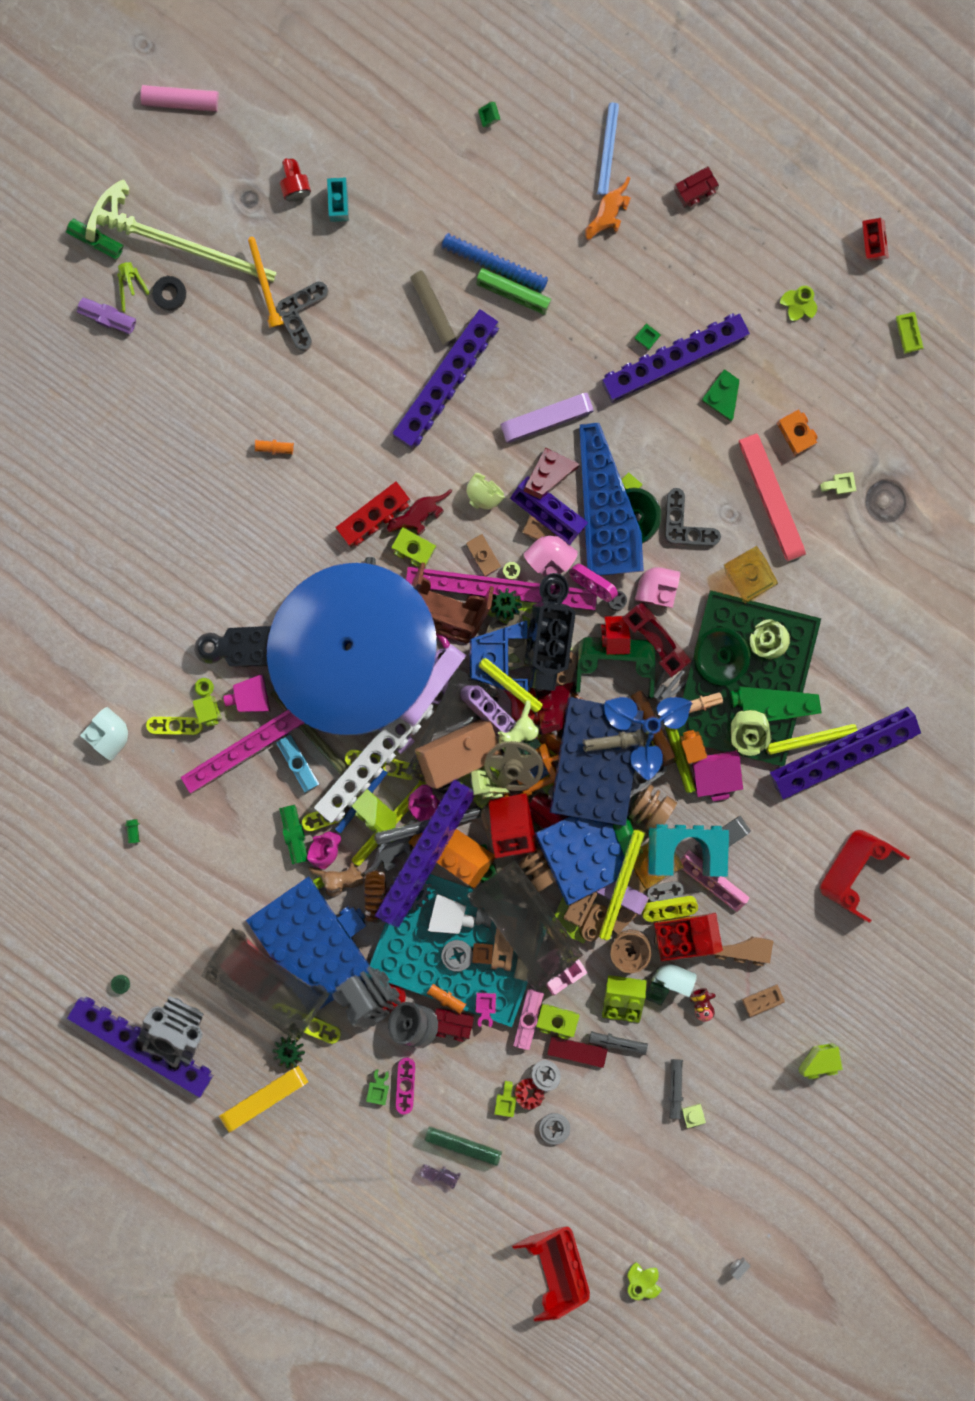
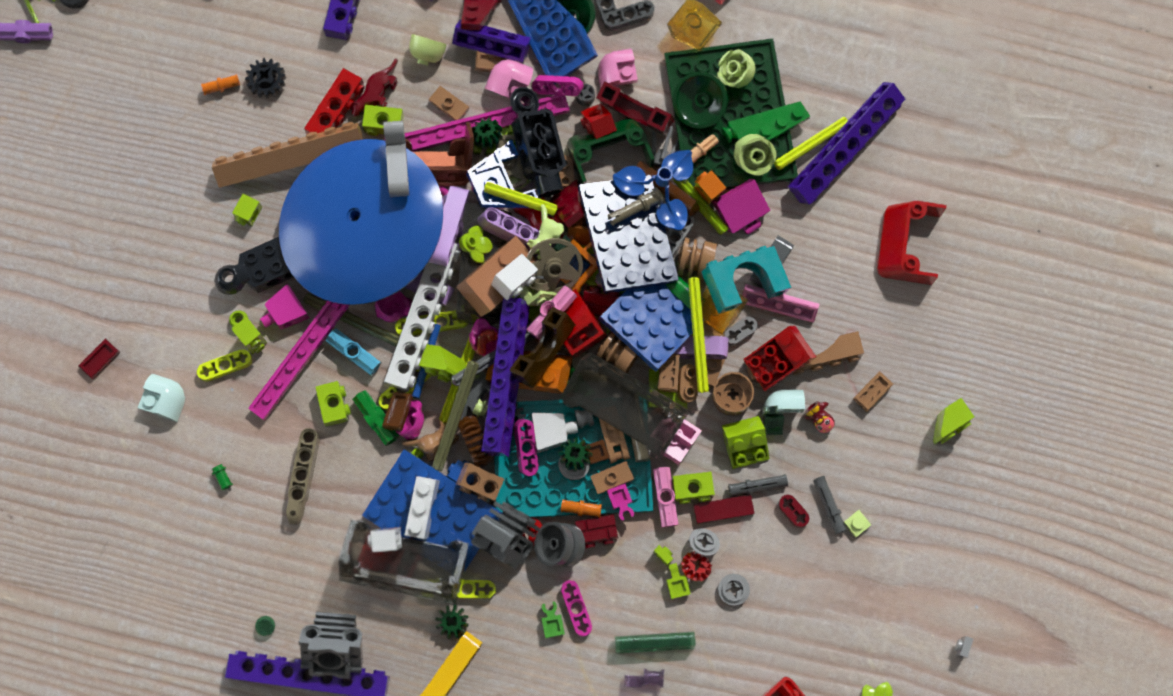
camera: 25 degrees left, 10 degrees down
(62, 671) = (99, 358): none -> dark red tile
(191, 887) = (298, 506): none -> dark tan piece
(251, 584) = (247, 210): none -> lime brick
(255, 793) = (326, 394): none -> lime brick
(256, 960) = (385, 539): none -> white brick
(301, 940) = (422, 500): none -> white arch
(307, 547) = (280, 155): none -> medium nougat brick
(310, 463) = (264, 85): none -> black gear
(315, 839) = (397, 411): none -> reddish brown tile
(352, 742) = (393, 307): none -> dark pink hair
(366, 868) = (455, 415): none -> olive axle
(366, 935) = (481, 477): none -> medium nougat brick
(392, 868) = (480, 408): none -> yellowish green plate
(406, 611) = (396, 159): none -> light grey beam
(420, 931) = (522, 462): none -> dark pink beam
(421, 805) = (484, 338): none -> clear red arm
(450, 714) = (475, 244): none -> lime plate
(454, 855) = (555, 330): none -> dark brown arch
(466, 954) = (578, 447): none -> dark green gear
(472, 765) = (514, 277): none -> white brick
(486, 981) = (612, 477): none -> medium nougat plate
(493, 779) = (540, 285): none -> dark tan plate
(502, 804) = (560, 301): none -> bright pink piece
(504, 1070) = (663, 554): none -> lime plate
(506, 573) = (475, 104): yellowish green bush -> none
(636, 1082) = (790, 514): none -> dark red beam
(663, 904) = (743, 342): neon yellow beam -> none

